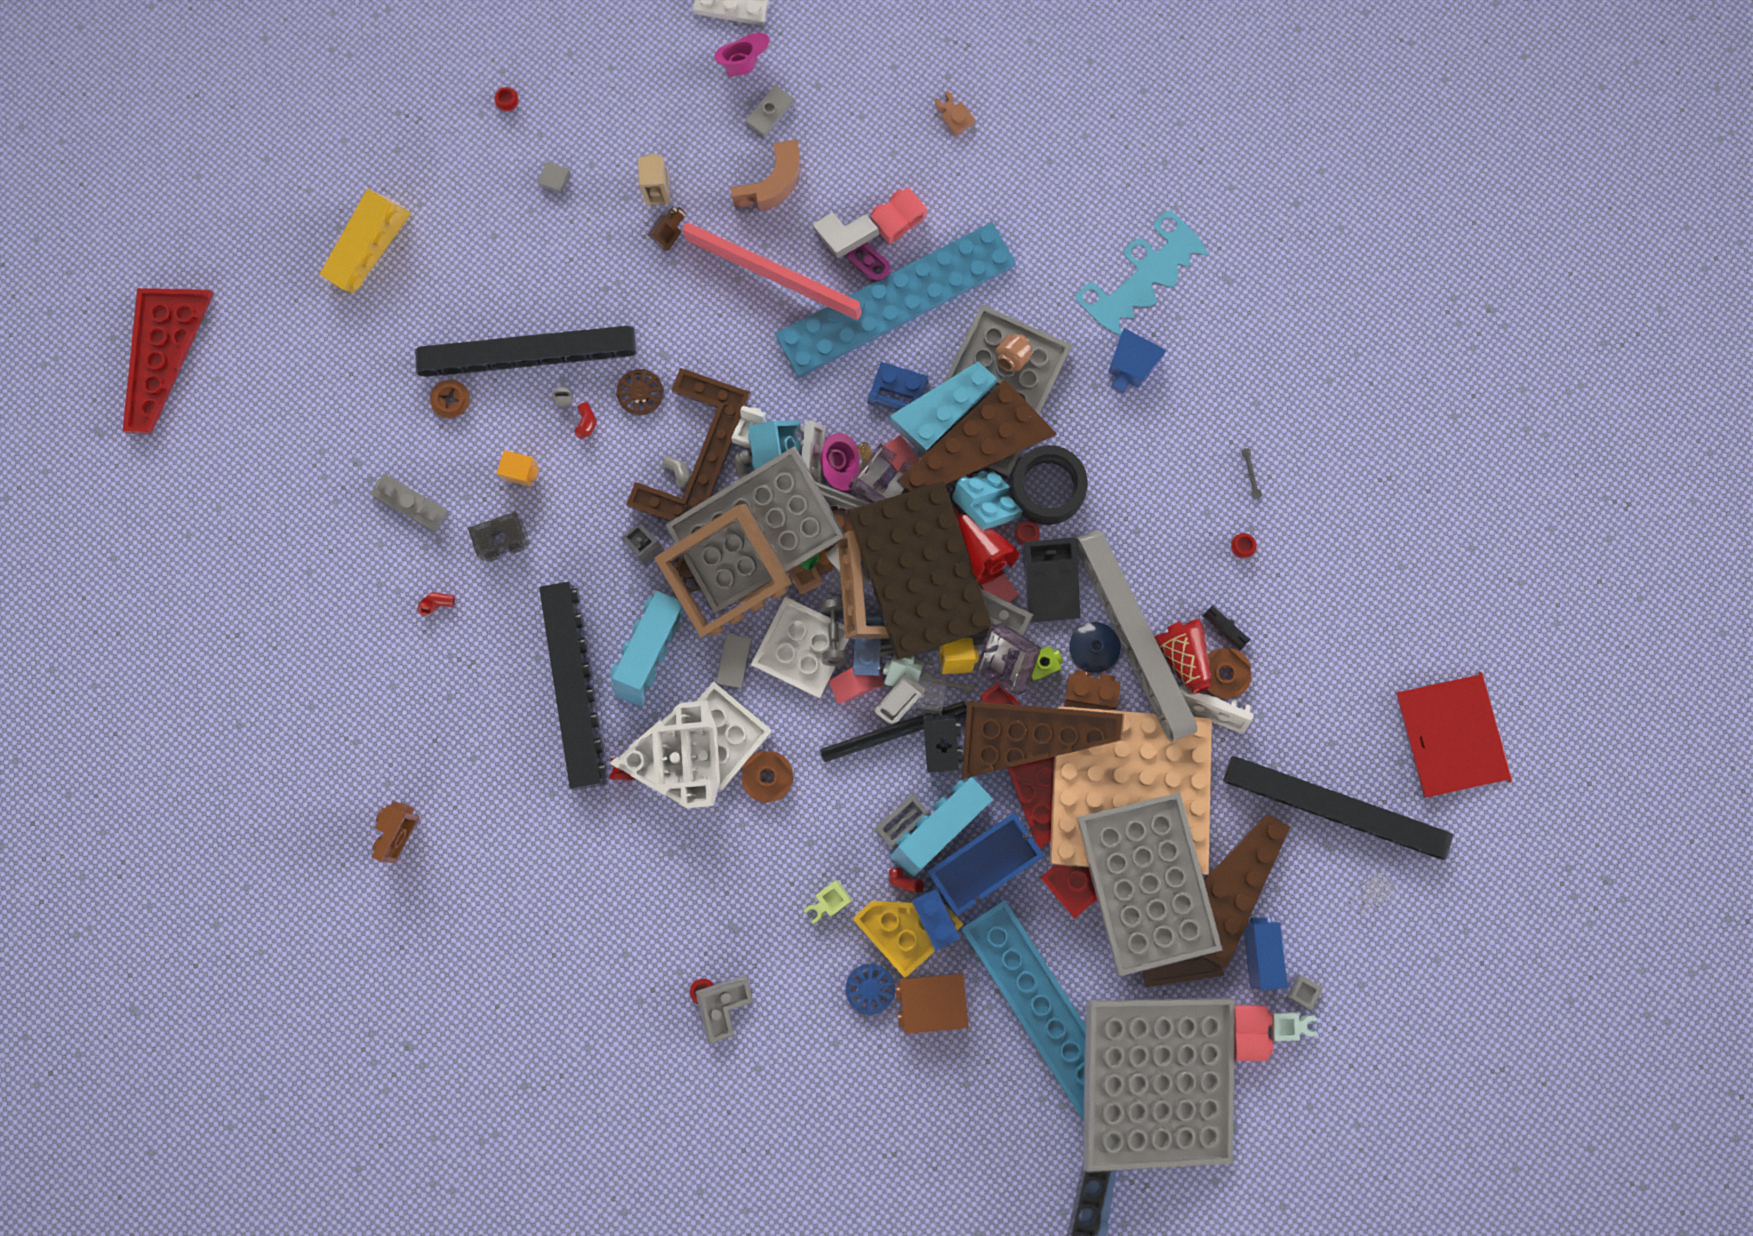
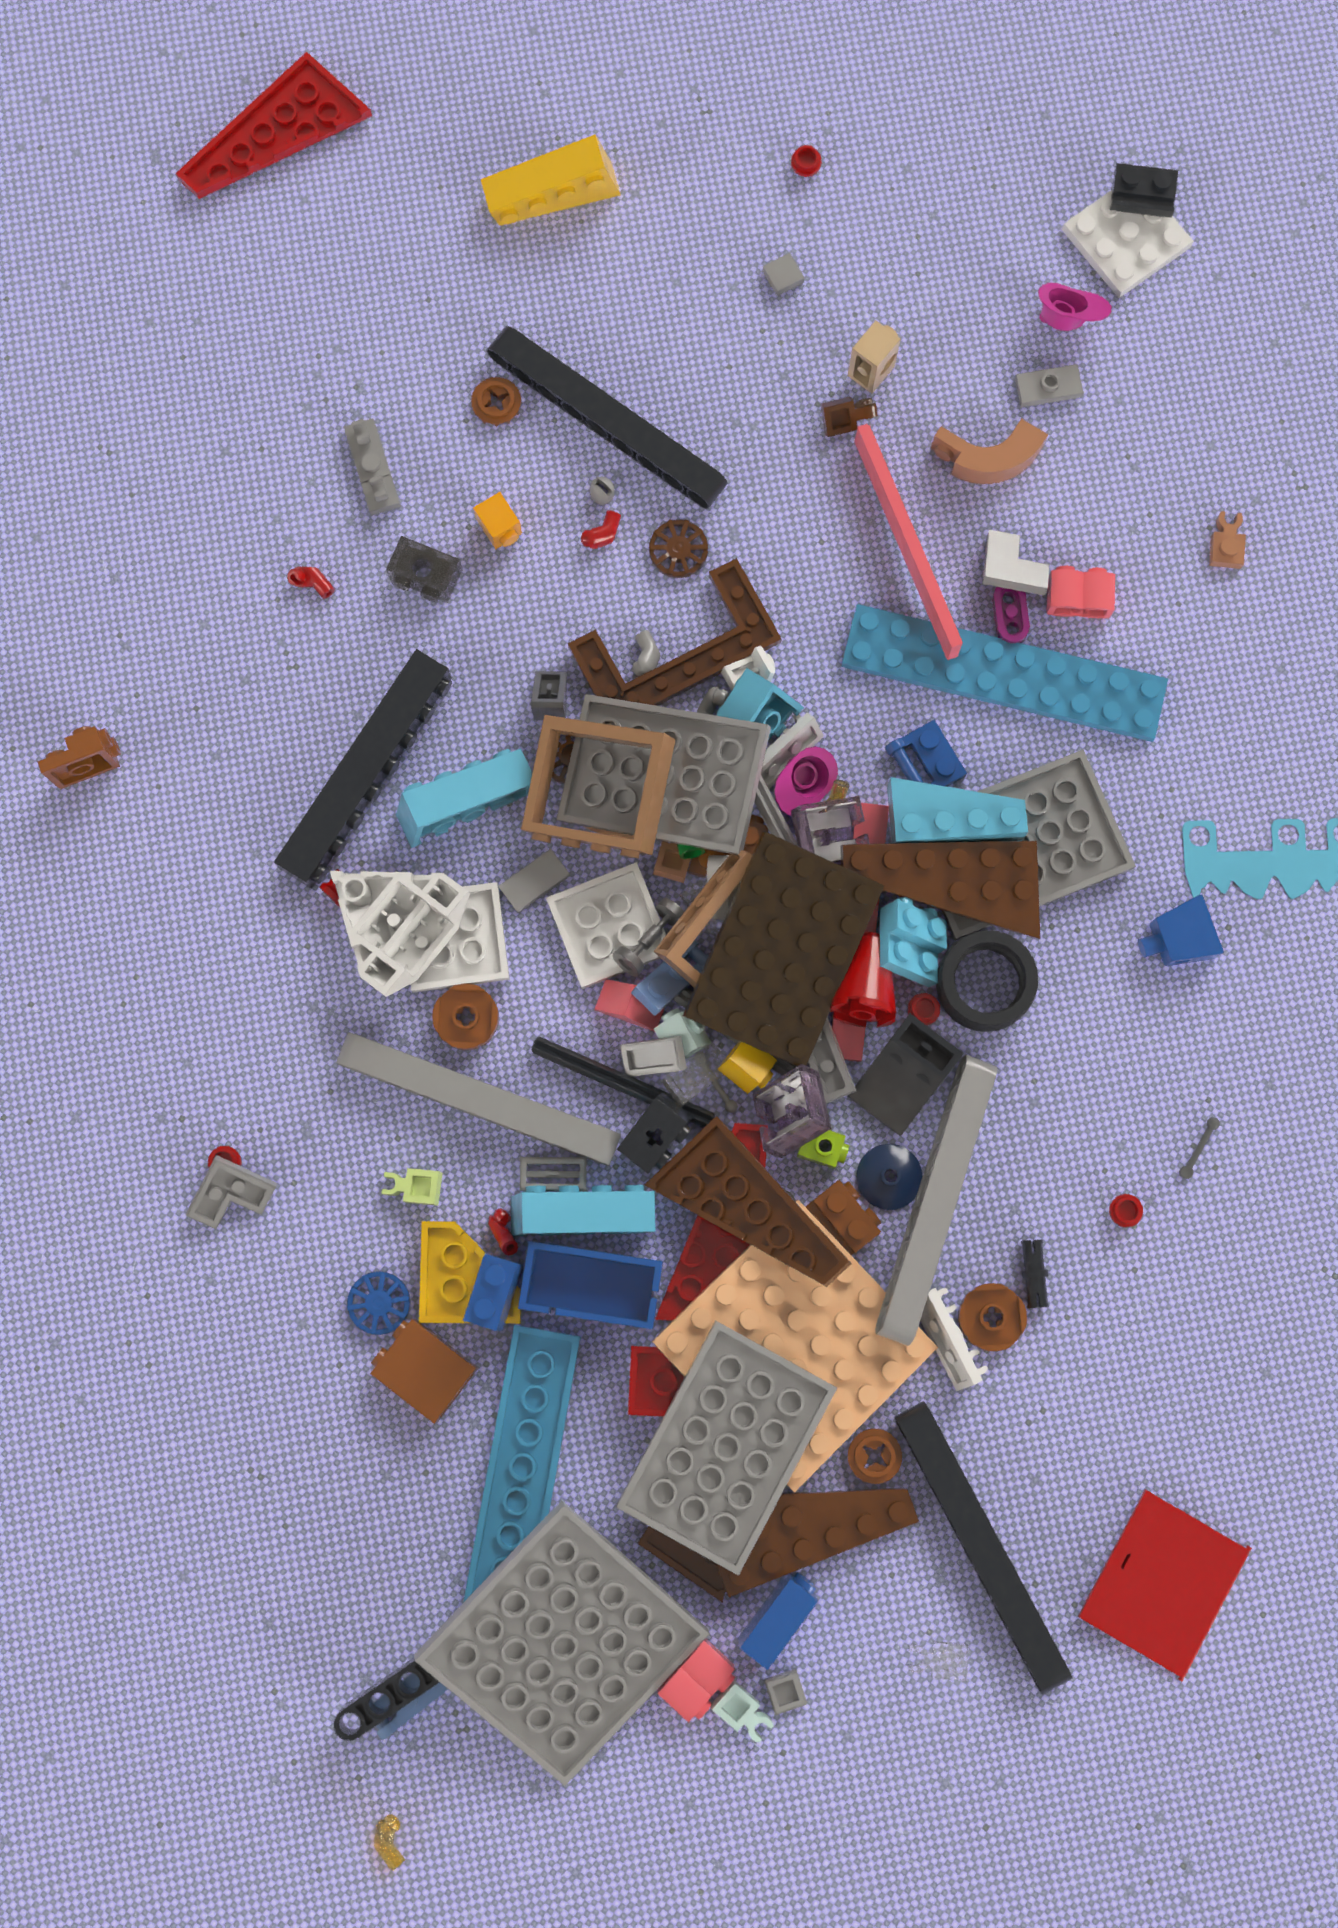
camera: 40 degrees right, 0 degrees up
(818, 817) = (478, 1099): none -> light grey beam
(1013, 352) = (1069, 822): nougat head -> none
(1187, 654) = (969, 1263): red cone -> none
(1240, 804) = (875, 1472): none -> dark orange gear

